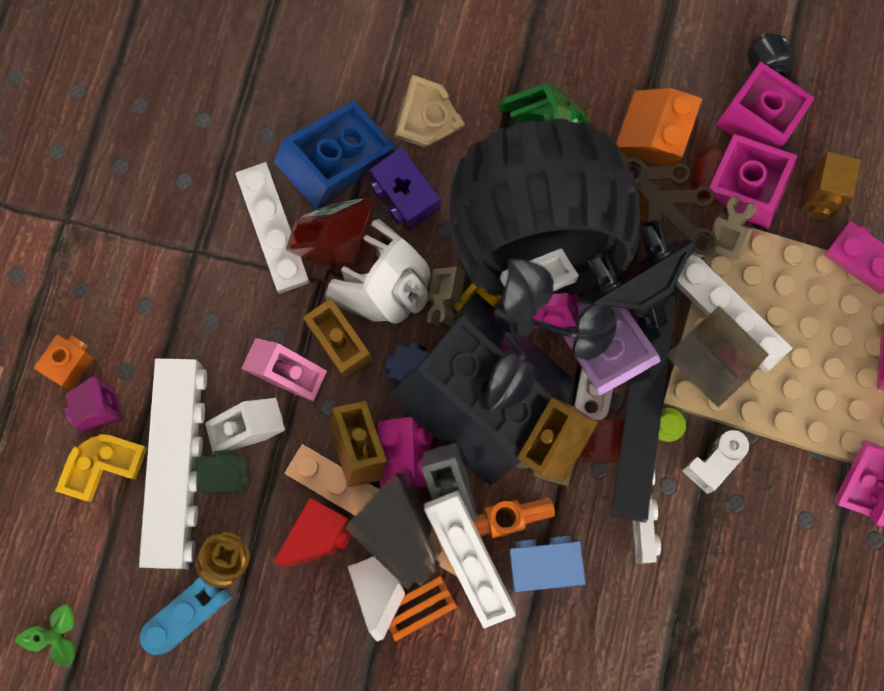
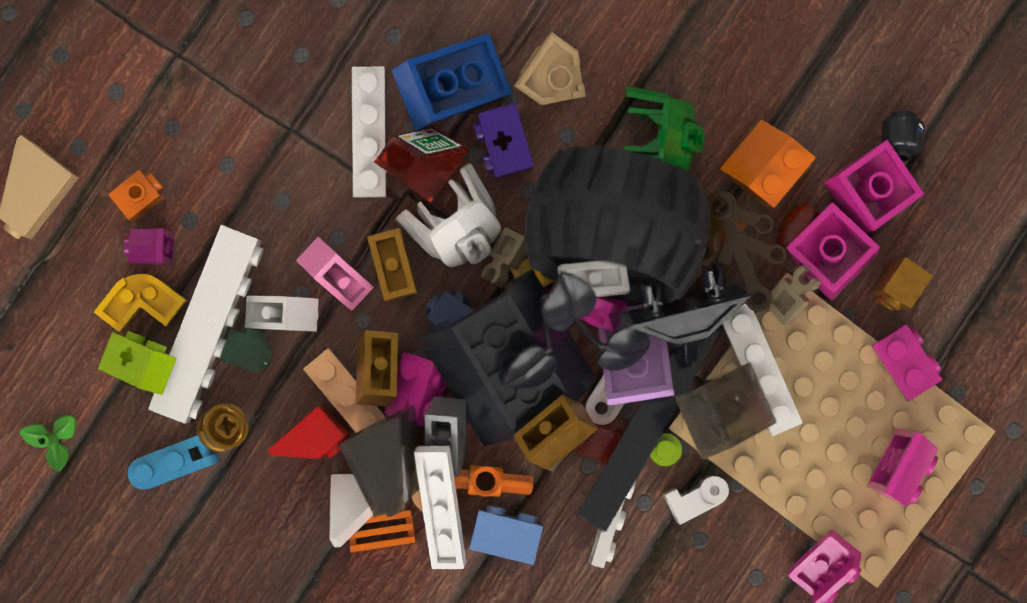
camera: 15 degrees right, 10 degrees up
(114, 522) = (138, 363): none -> lime brick

